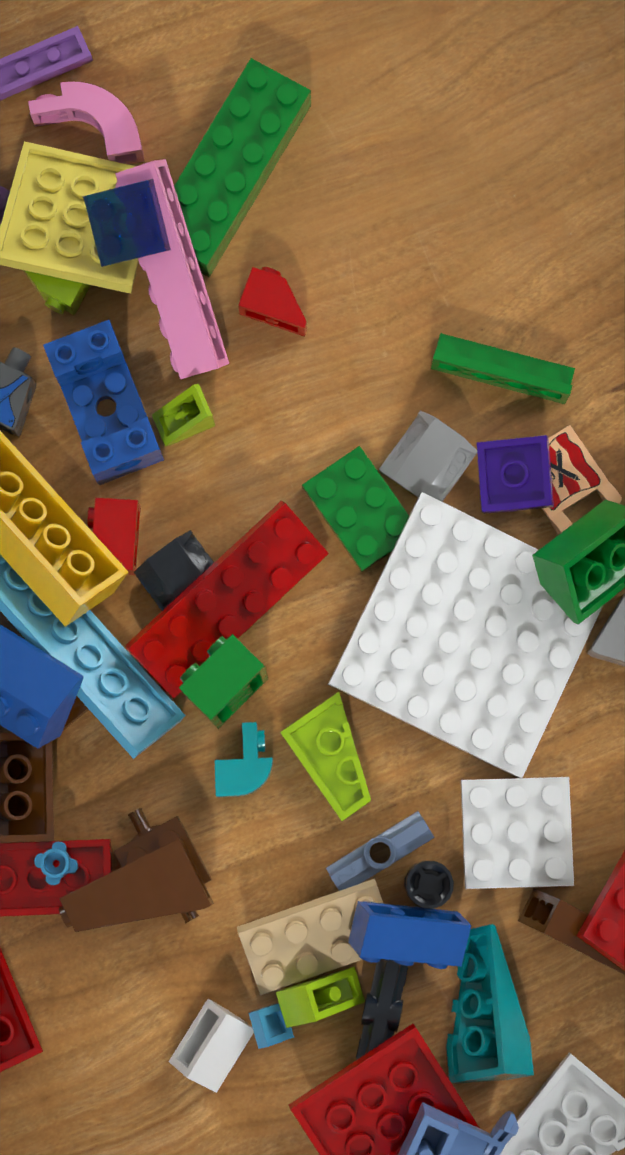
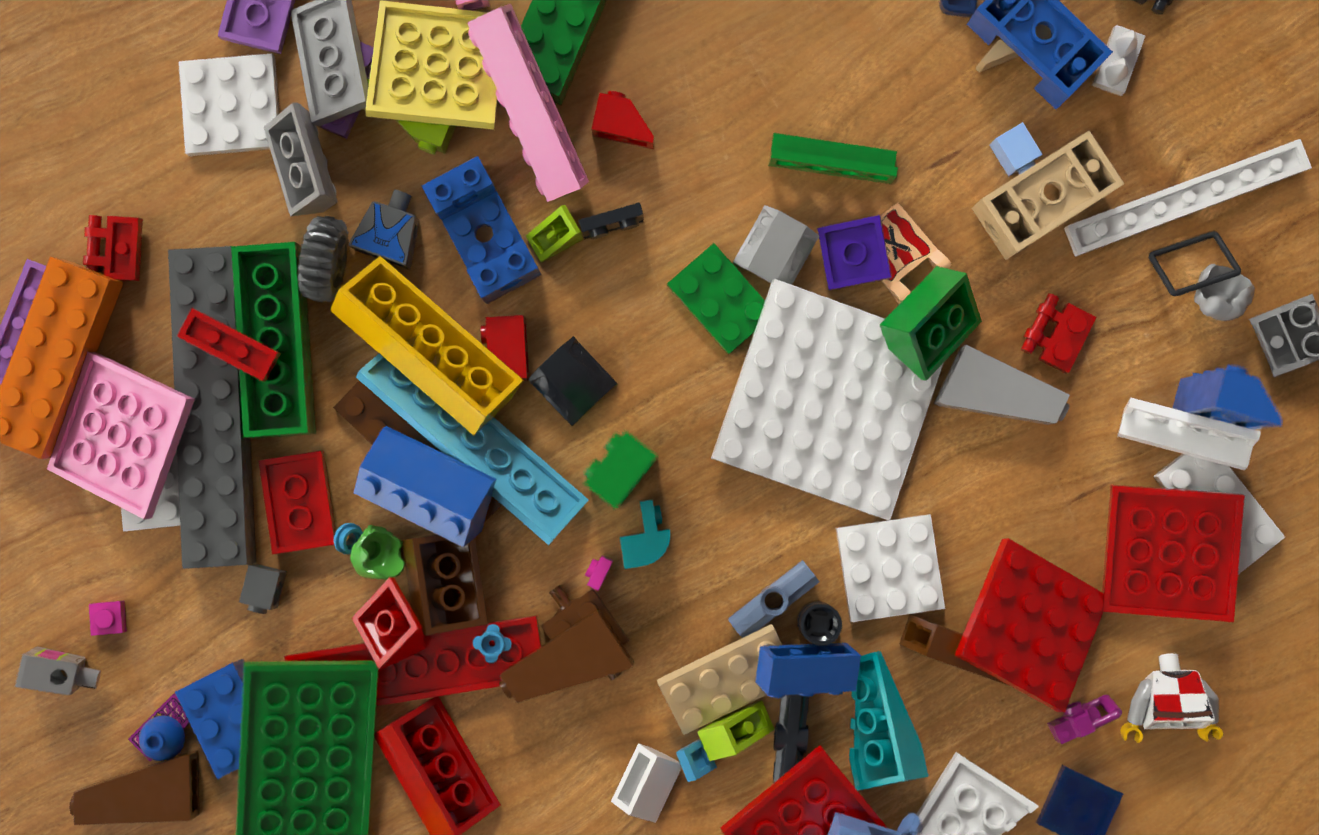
camera: 10 degrees left, 5 degrees up
(127, 222) = (483, 66): clear blue plate -> none
(185, 797) = (597, 571): none -> dark pink plate
(228, 596) = (613, 392): red plate -> none
(248, 408) = (603, 223): none -> black plate
(329, 756) = (719, 520): lime wing -> none

